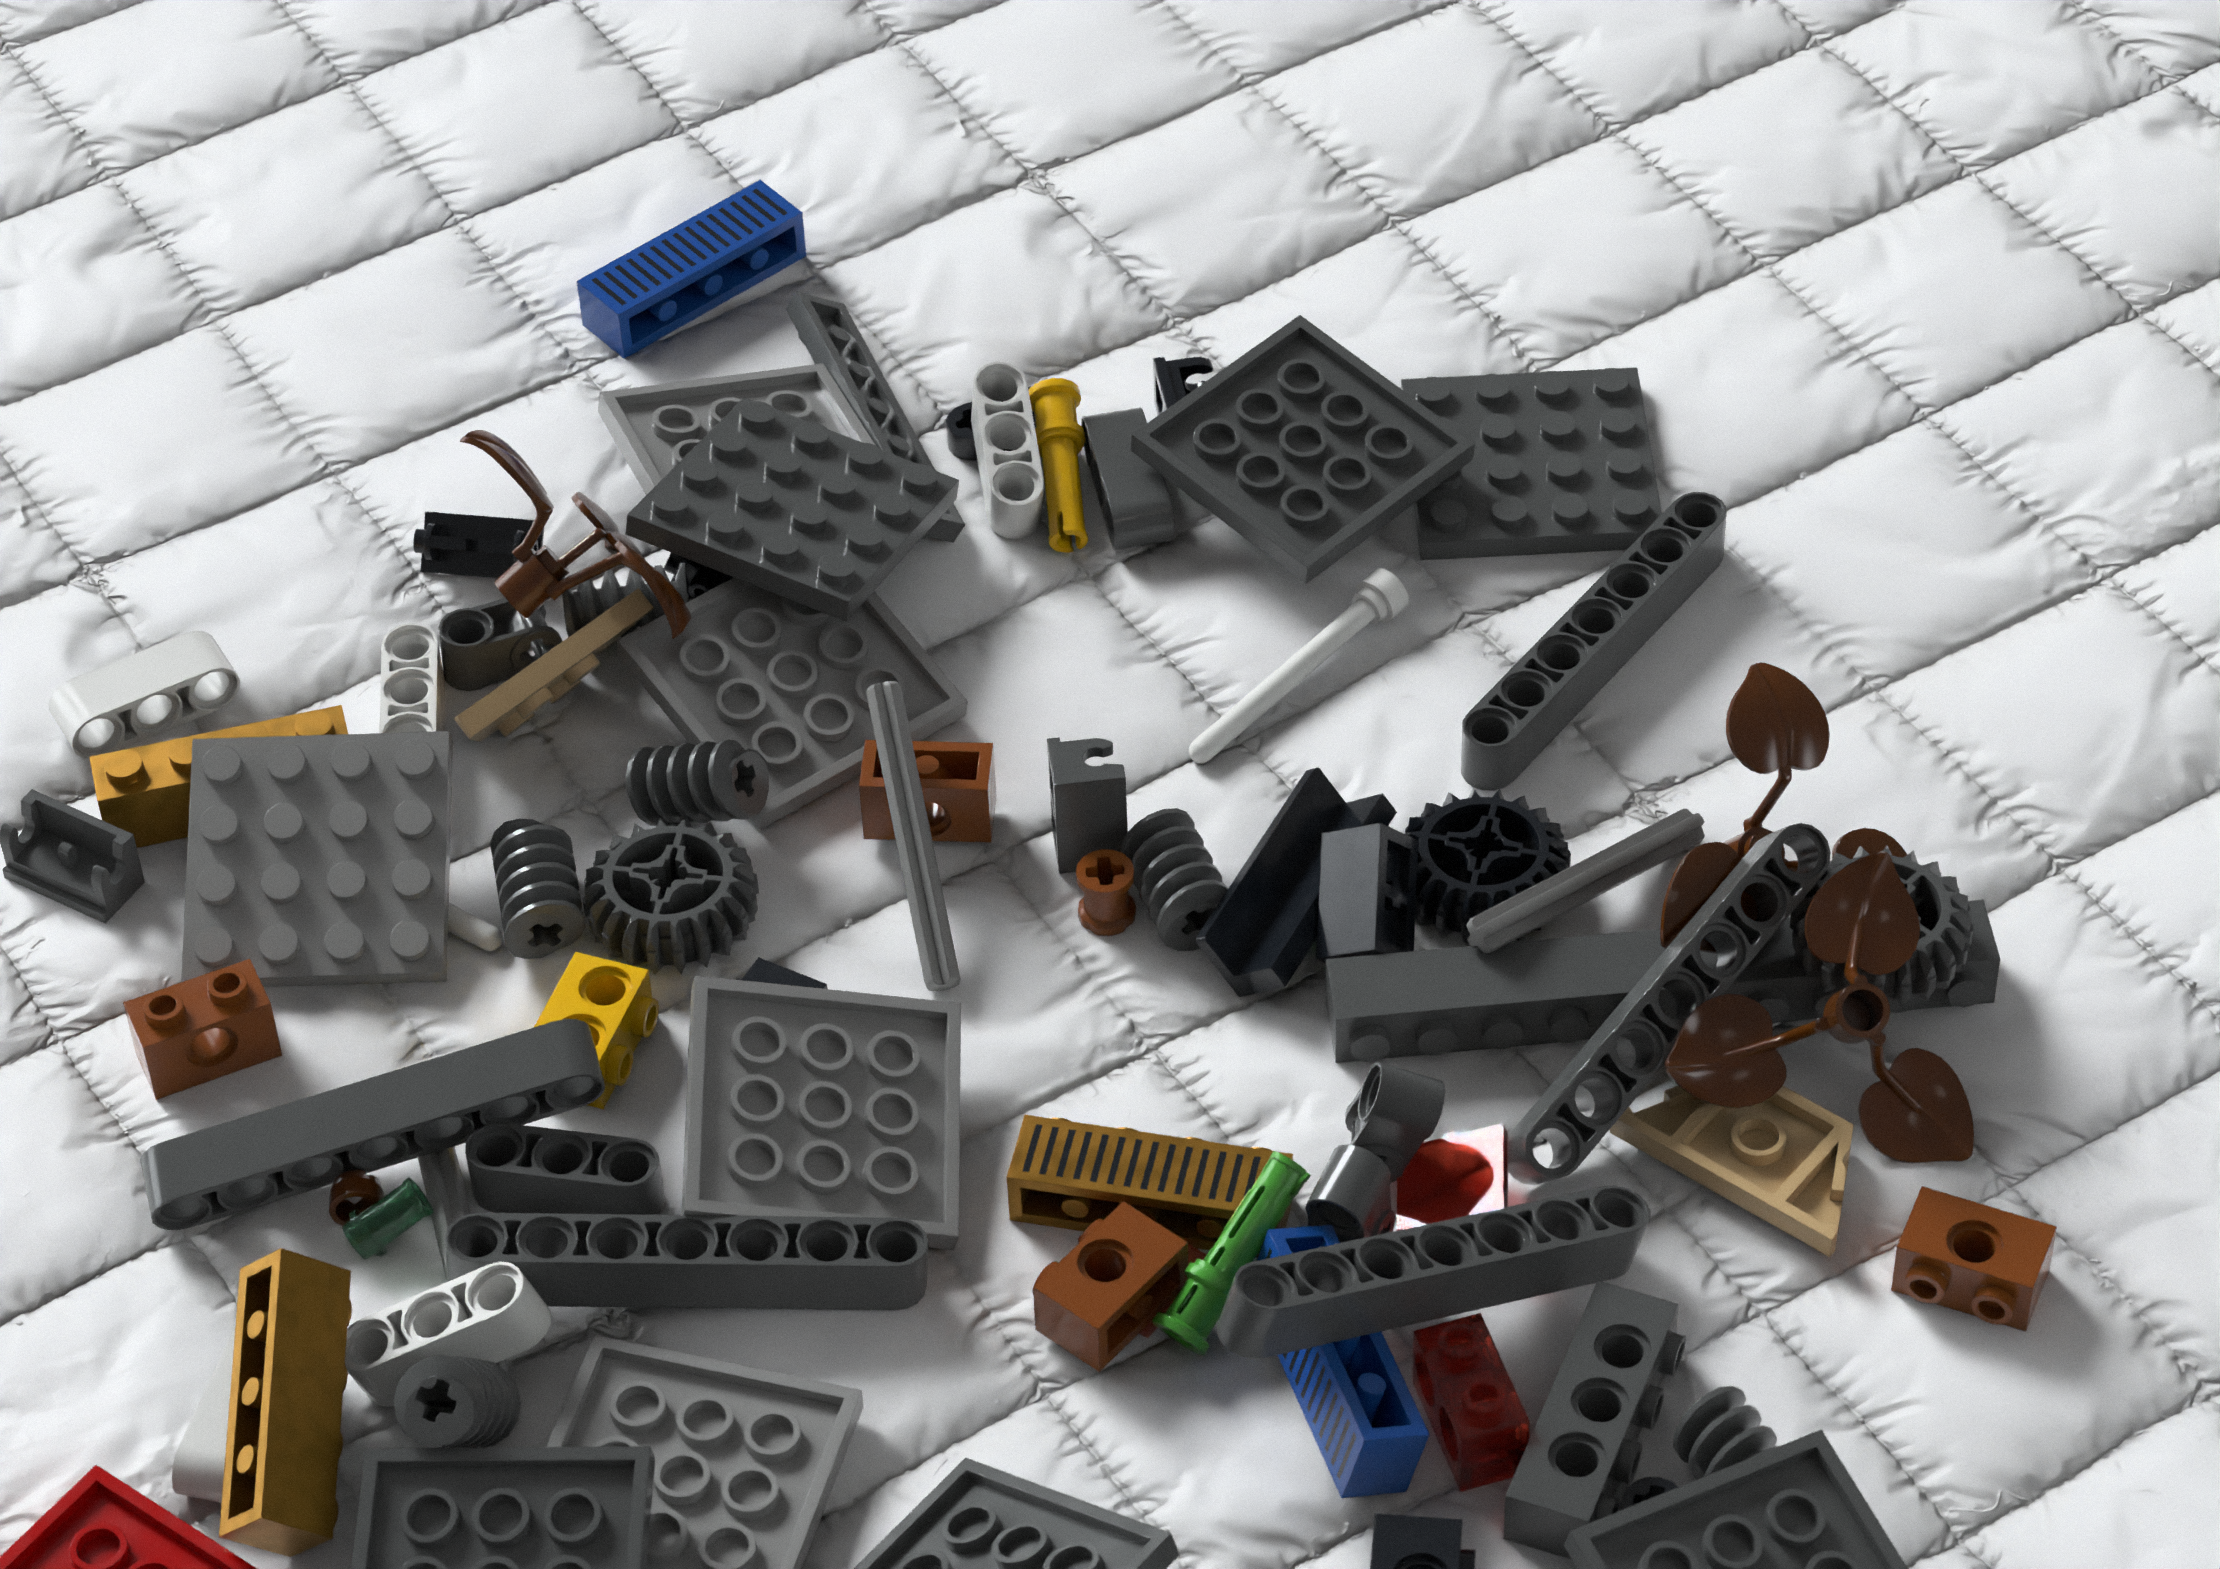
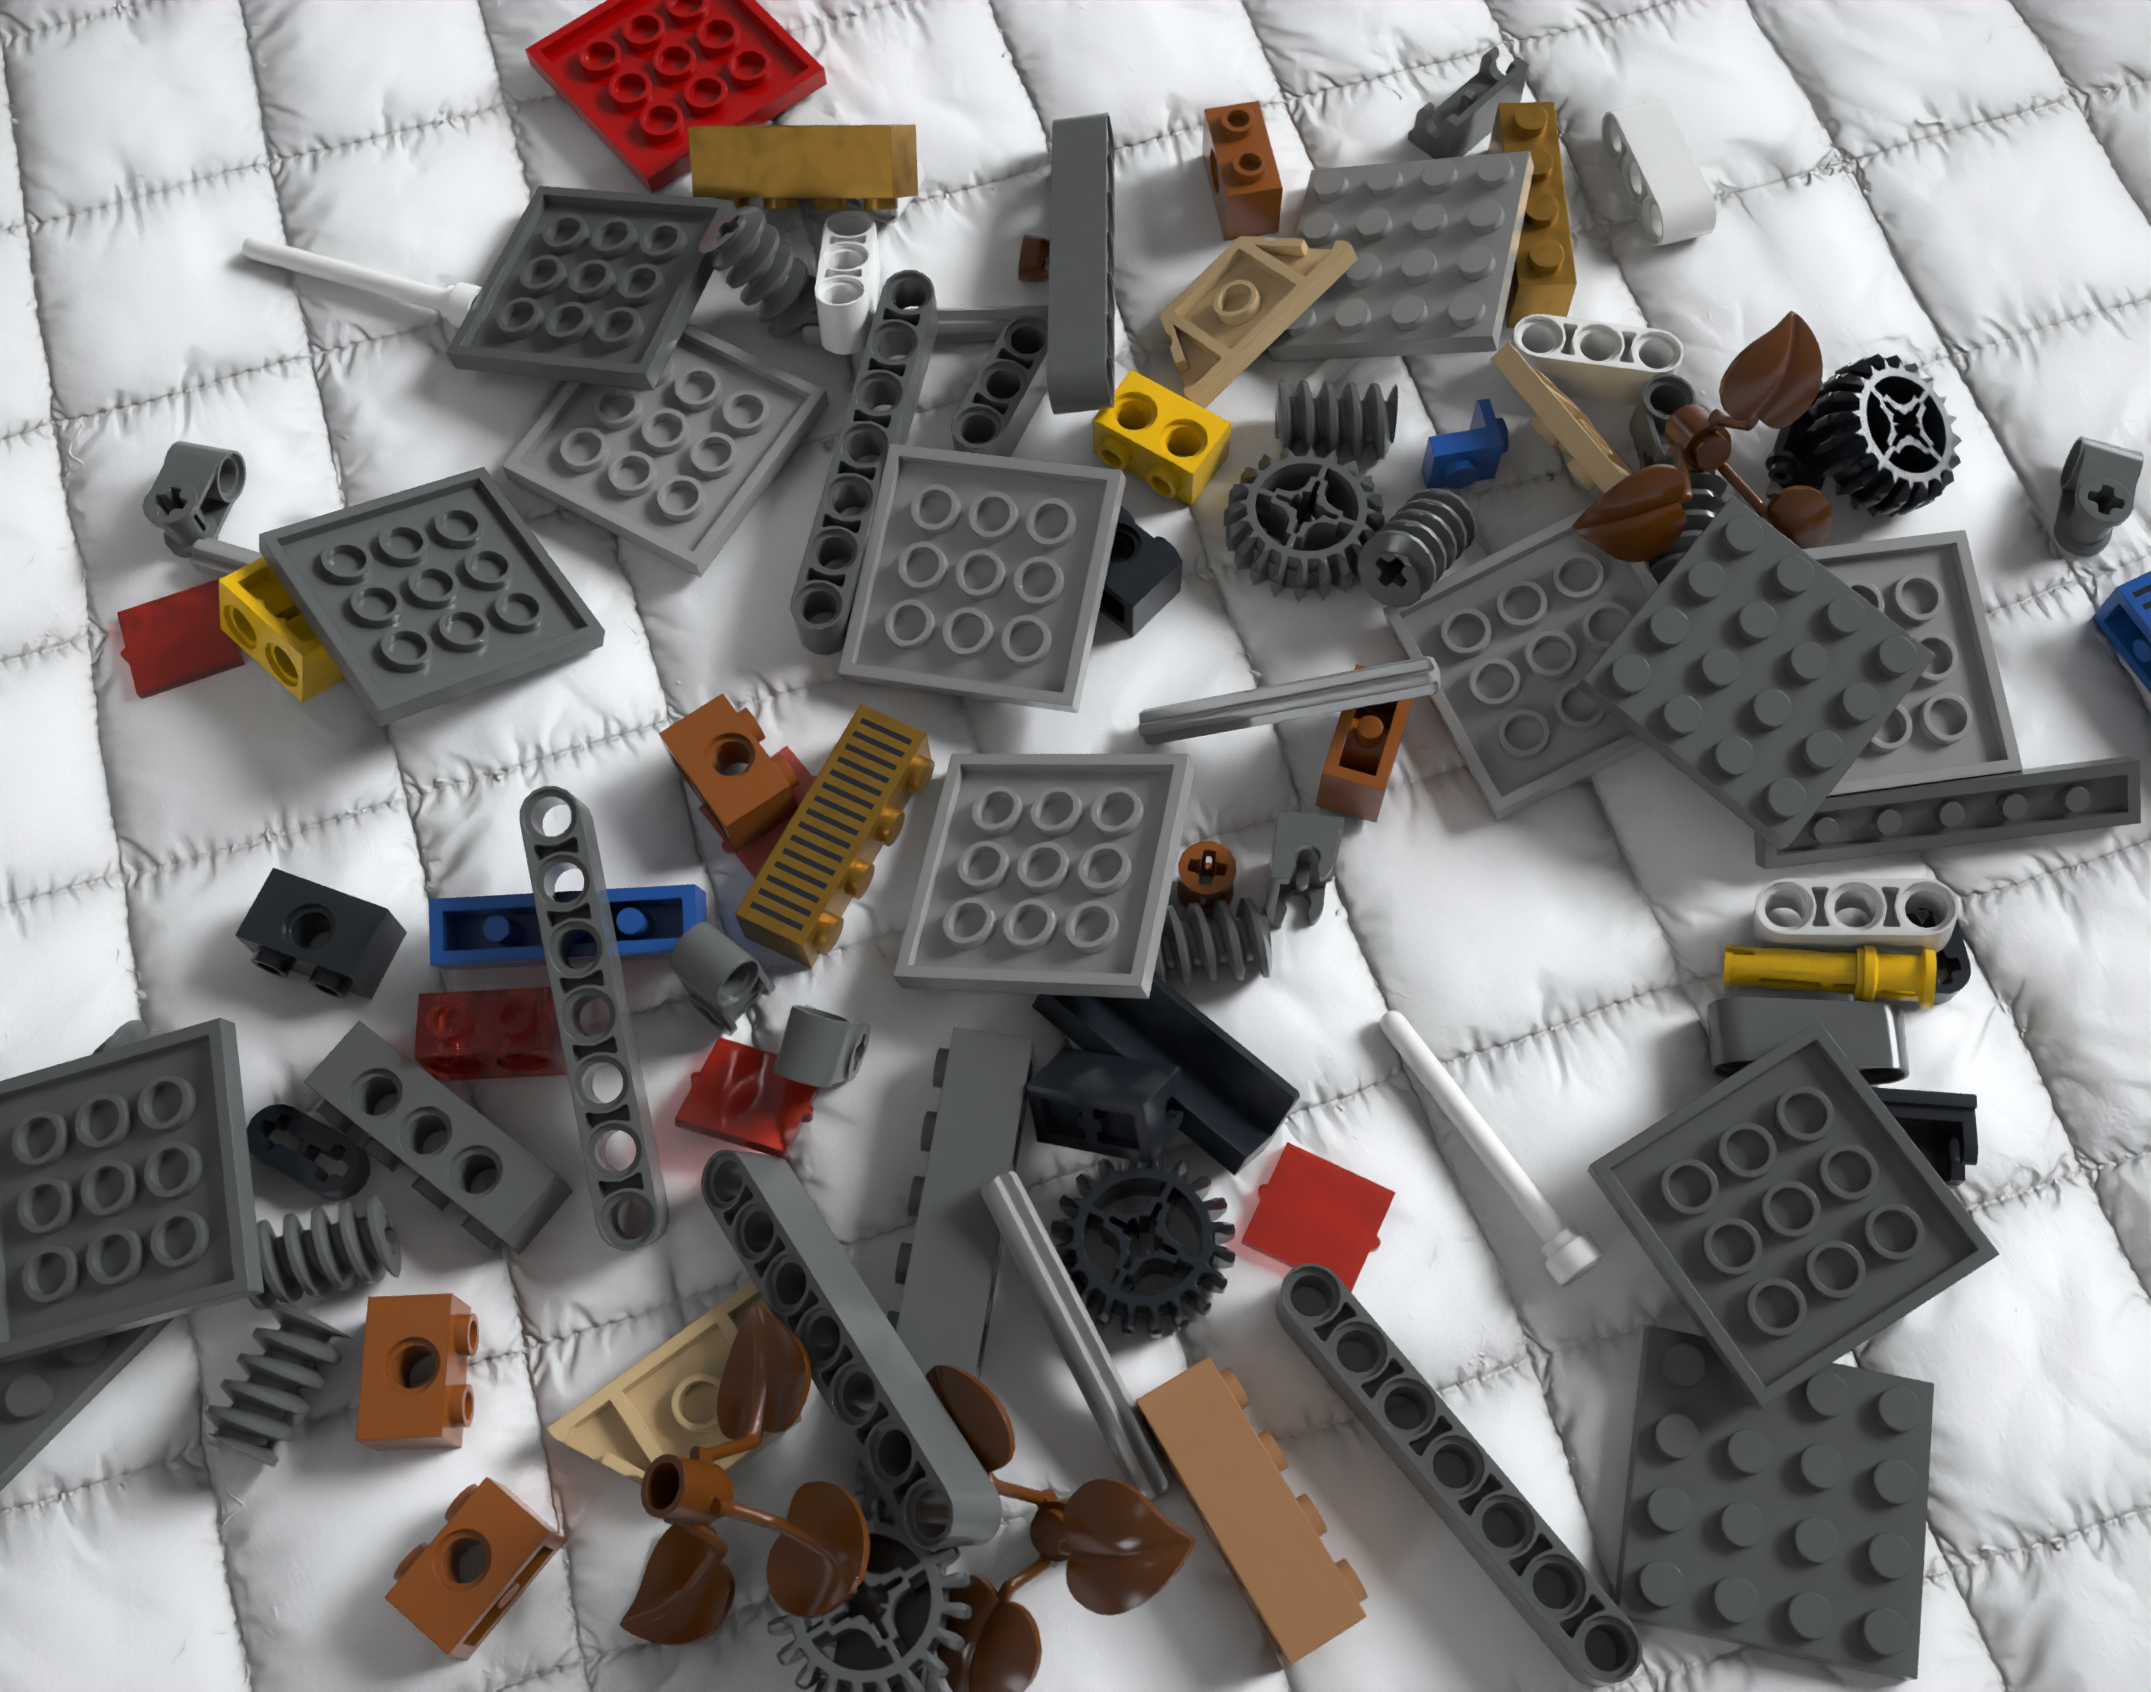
camera: 105 degrees right, 20 degrees up
(386, 1219) = (998, 267): clear green pin -> none
(408, 981) = (1244, 306): none -> tan wing
(466, 485) = (1884, 436): none -> black gear
(494, 348) = (2095, 494): none -> dark grey piece
(546, 774) = (1466, 455): none -> blue bracket
(1150, 985) = (1047, 874): none -> light grey plate
(1209, 1280) = (696, 852): bright green pin -> none
(1405, 766) = (1318, 1215): none -> clear red piece
(1665, 763) = (1250, 1511): none -> medium nougat brick
(1825, 1362) = (398, 1336): none -> dark orange brick
(1897, 1462) = (274, 1383): none -> dark grey piece

